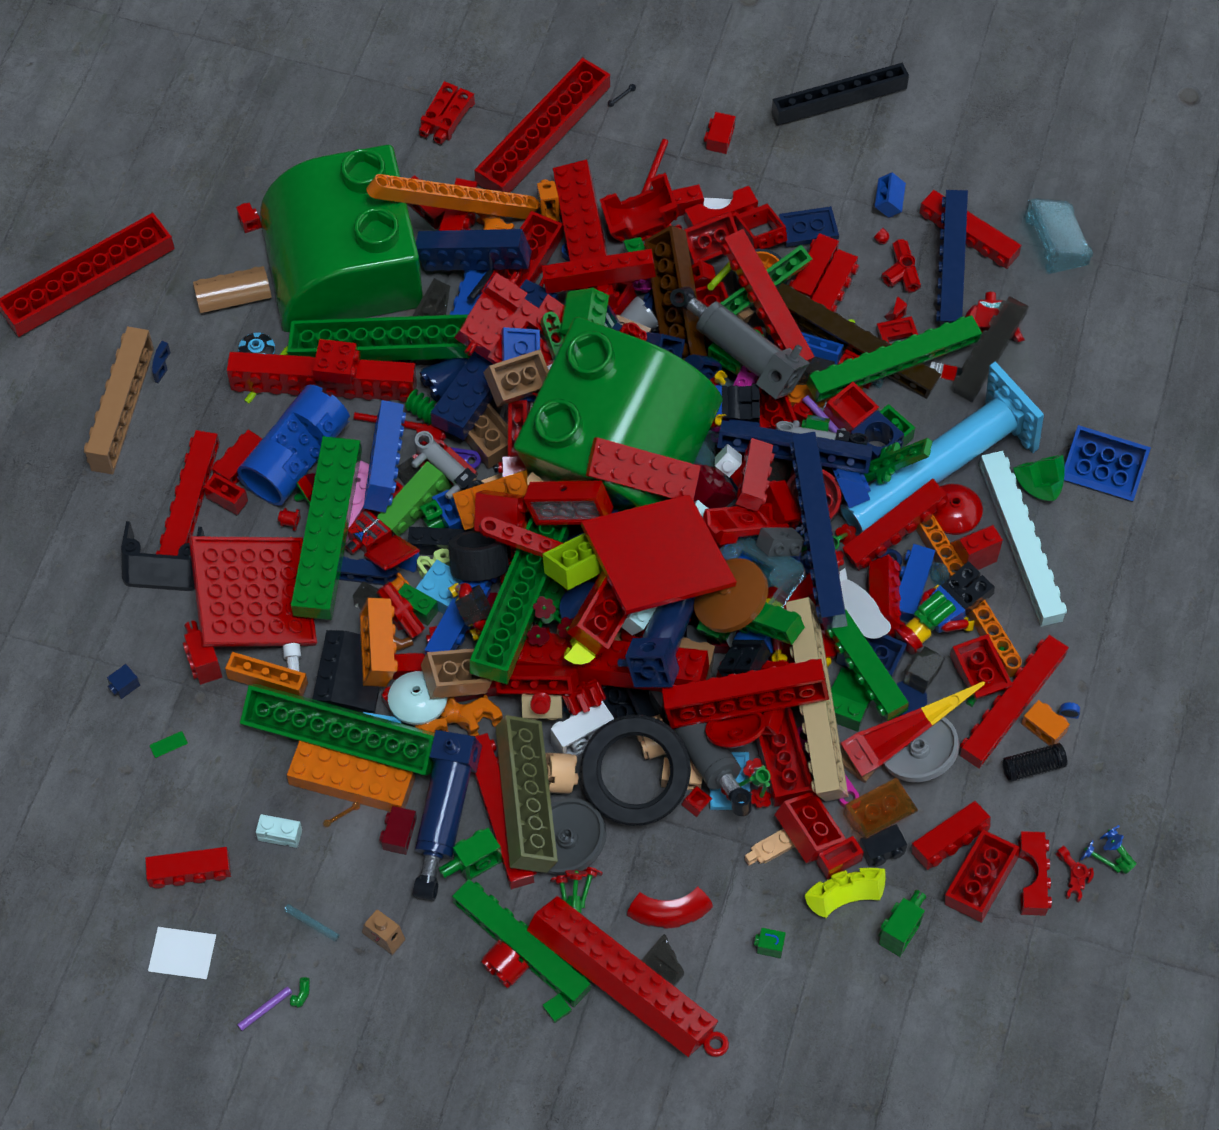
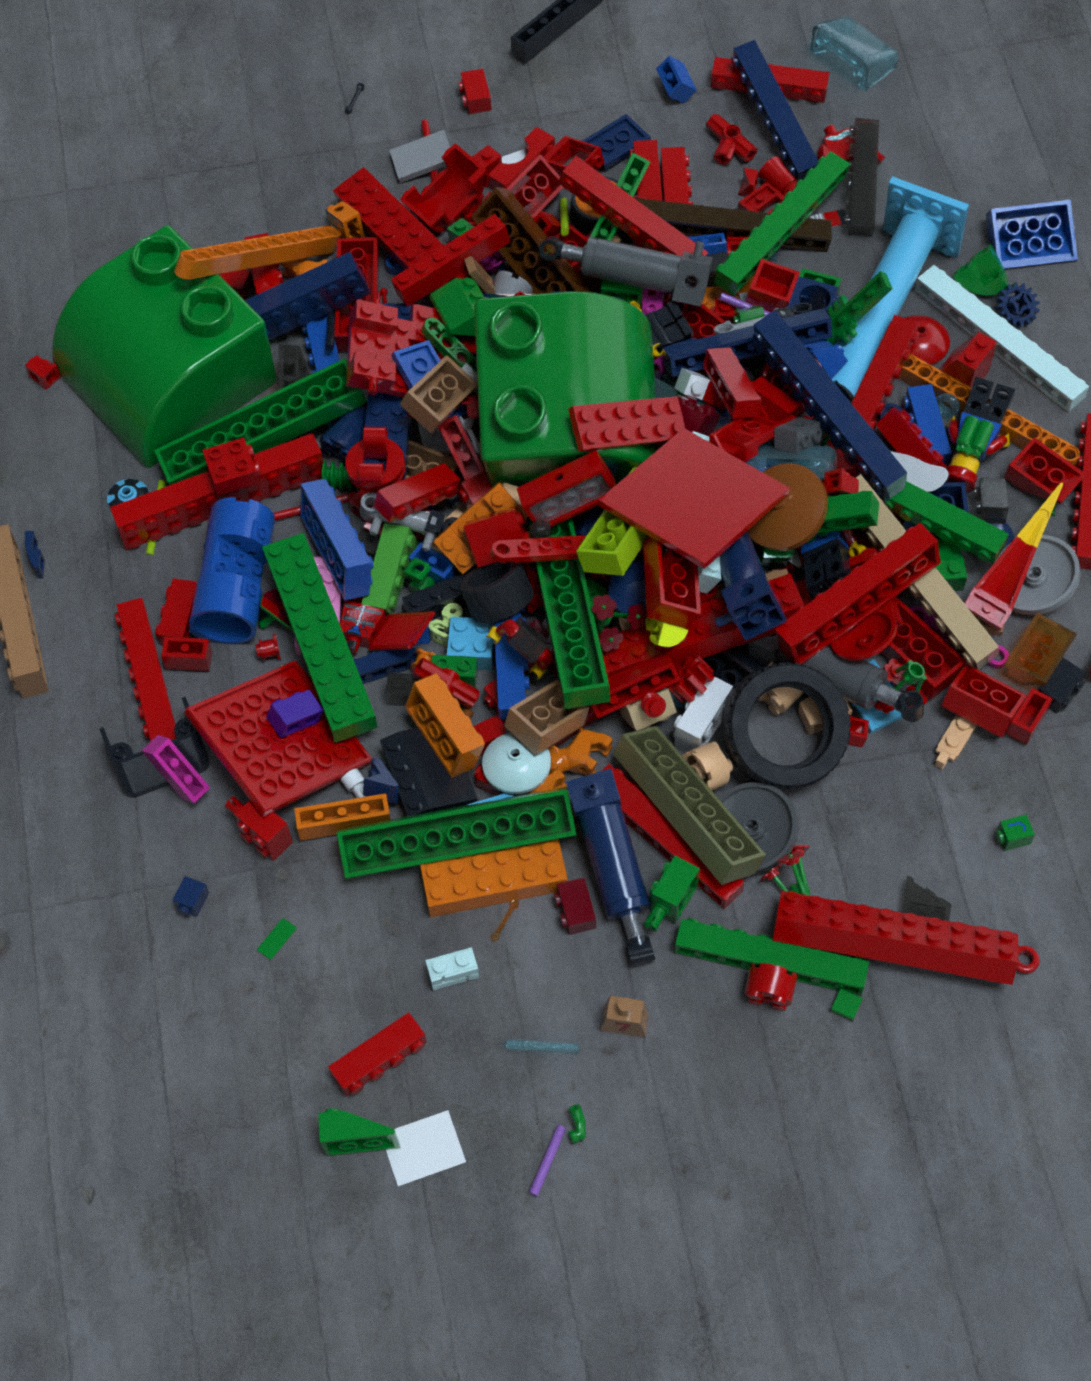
camera: 25 degrees left, 0 degrees up
(128, 913) = (350, 1134): none -> green slope
(163, 579) = (175, 769): none -> dark pink brick
(232, 289) = (68, 449): medium nougat brick -> none
(272, 578) = (294, 713): none -> dark purple brick
(308, 663) = (380, 782): none -> dark blue slope
(445, 112) = (188, 185): red hips -> none
(450, 395) = (372, 476): none -> red piece
(463, 448) = (416, 492): none -> red brick
(534, 523) = (540, 529): none -> clear smoke tile
(543, 127) = (297, 155): red brick -> none
(616, 294) = (480, 275): none -> medium nougat tile
(639, 168) = (420, 156): none -> light grey tile
(670, 912) = (896, 855): red brick -> none
(784, 597) = (840, 482): none -> red brick
(846, 888) = (1052, 743): neon yellow brick -> none
(882, 236) = (691, 121): red hinge -> none
(922, 314) = (777, 175): none -> red plant
(1046, 511) = (1019, 304): none -> dark blue gear

